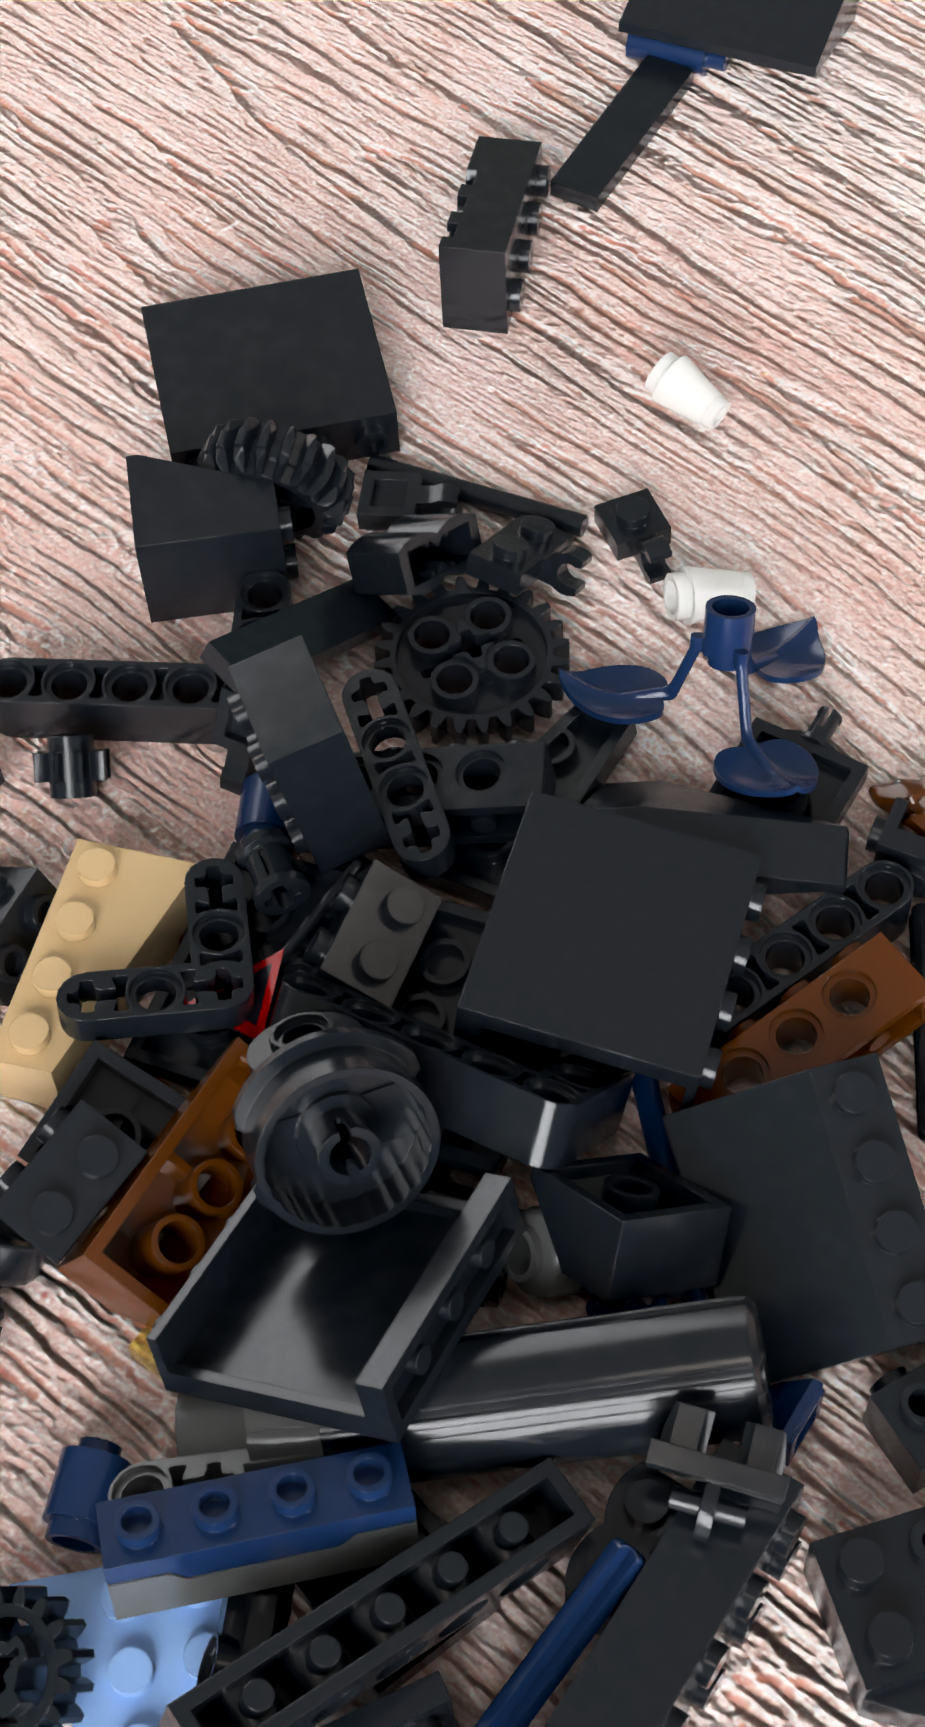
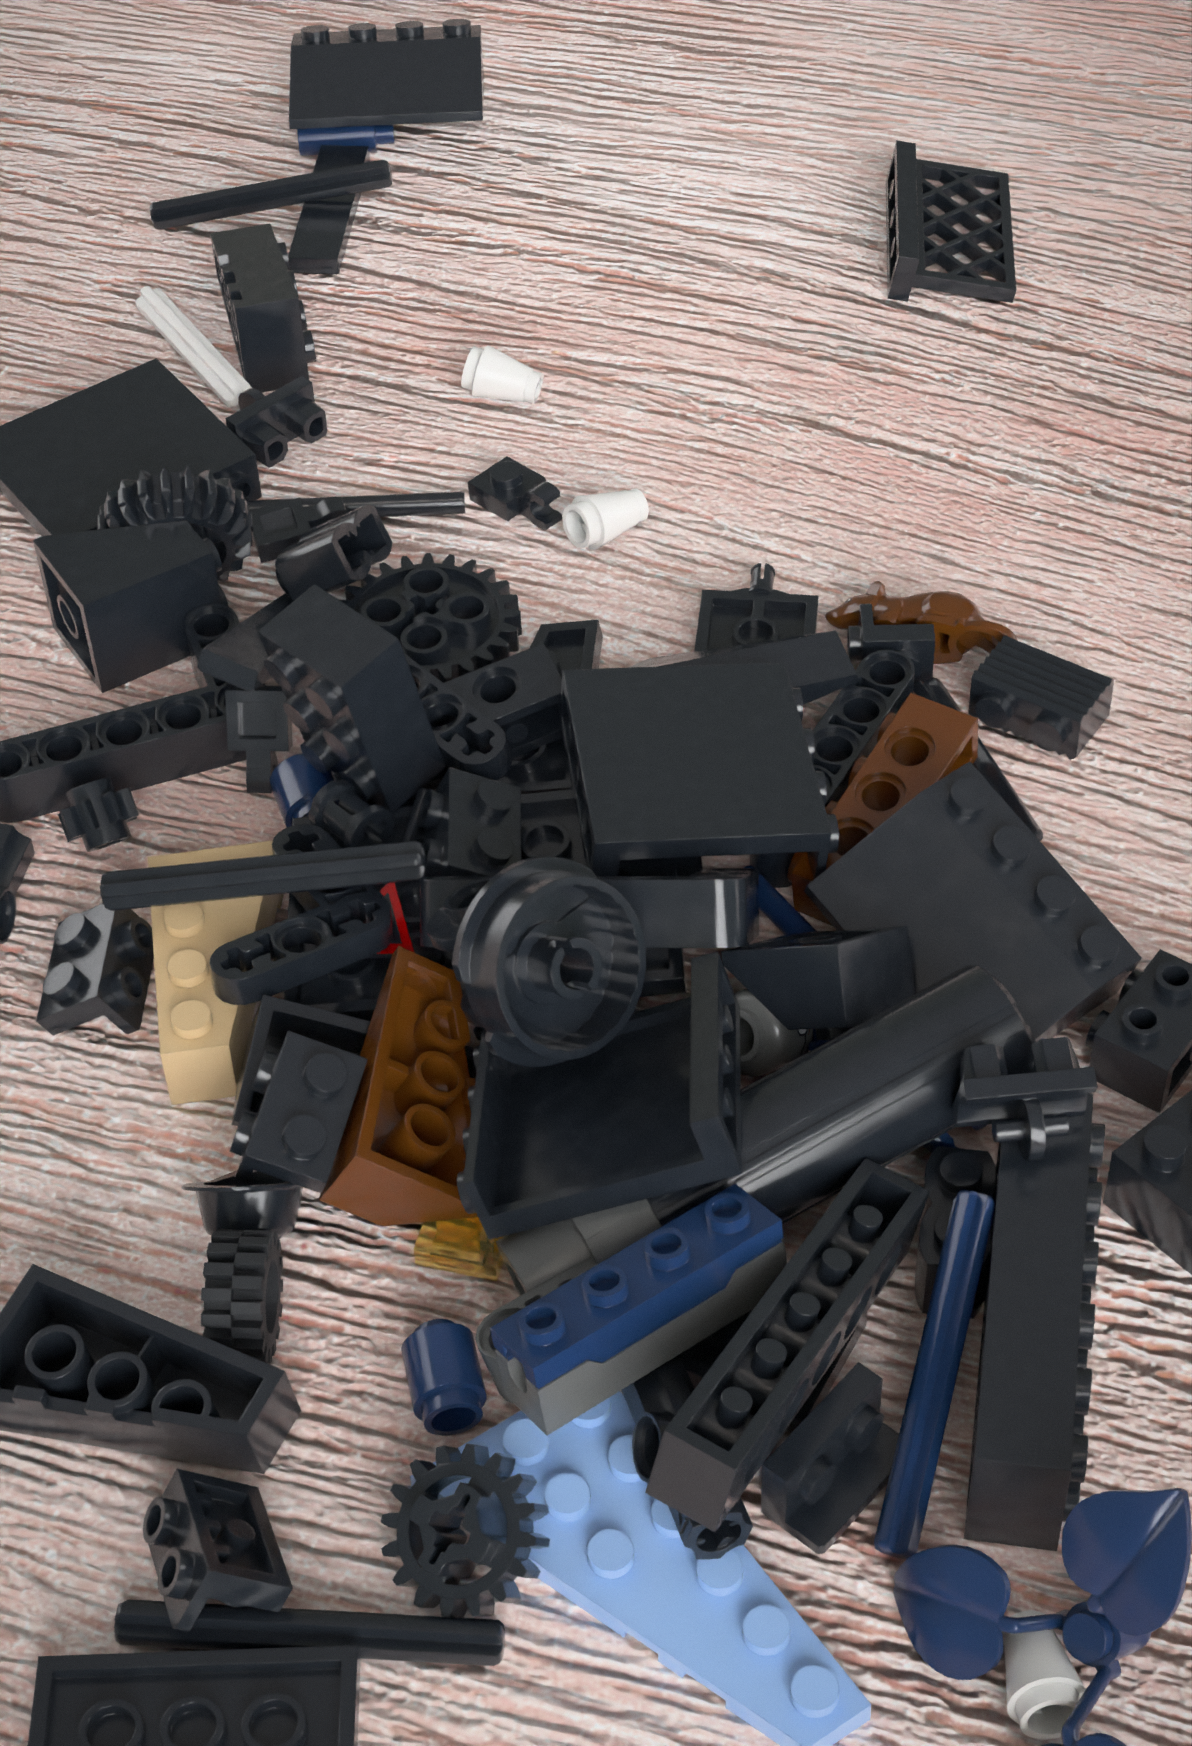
camera: 25 degrees left, 10 degrees down
(156, 912) = (263, 875): none -> black axle
(413, 258) = (192, 345): none -> white axle
(440, 372) = (278, 418): none -> black hips
(529, 552) = (432, 530): black plate -> none
(568, 103) = (271, 194): none -> black axle
(728, 641) = (666, 539): dark blue plant -> none

